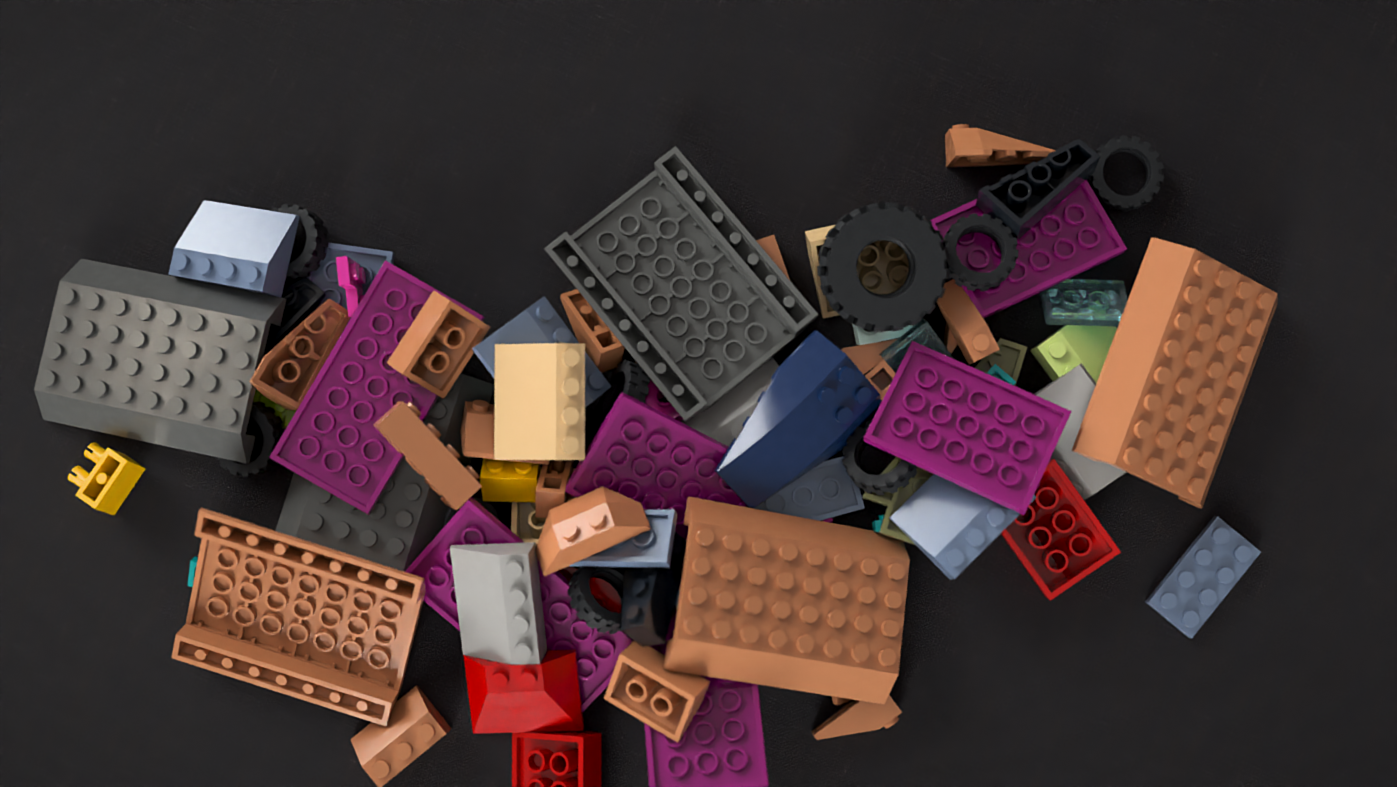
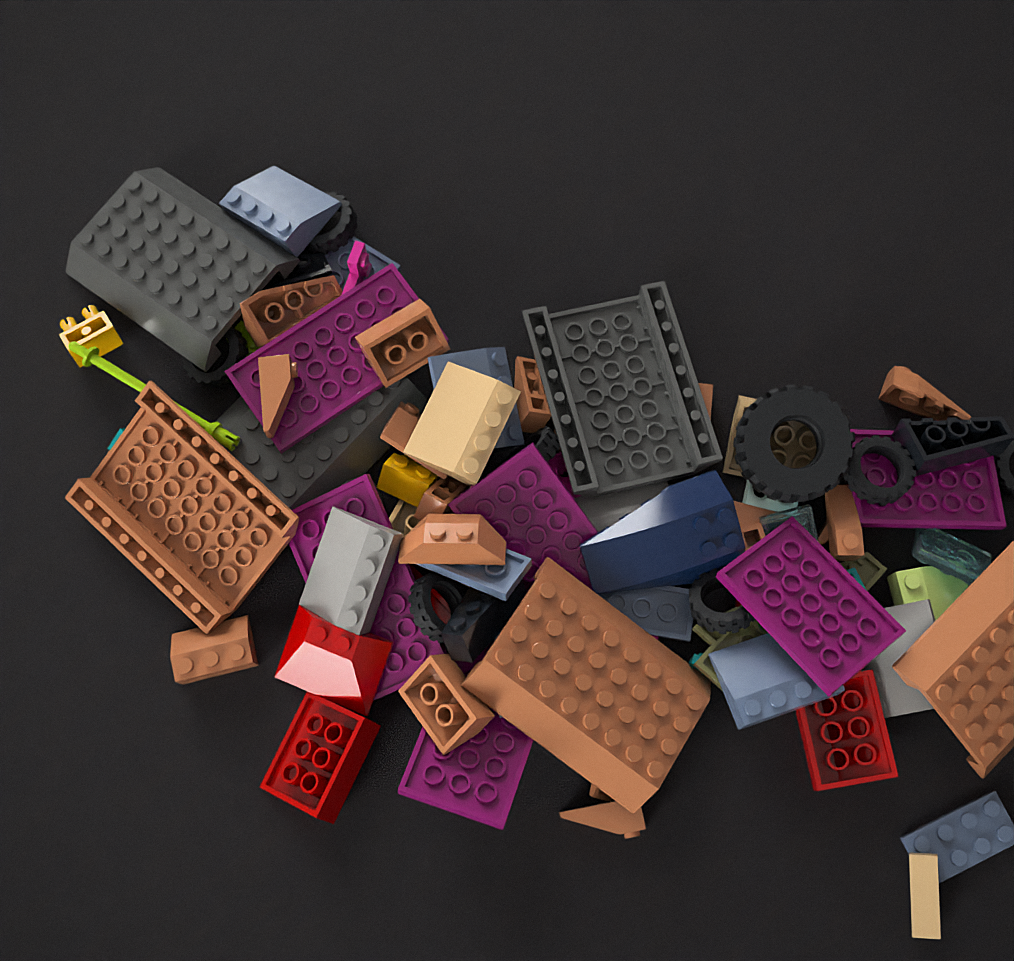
camera: 25 degrees right, 10 degrees down
(288, 523) = (90, 357): none -> lime bar
(331, 451) = (276, 387): none -> nougat slope
(428, 455) = (351, 423): nougat wedge -> none
(1190, 648) = (924, 895): none -> tan tile

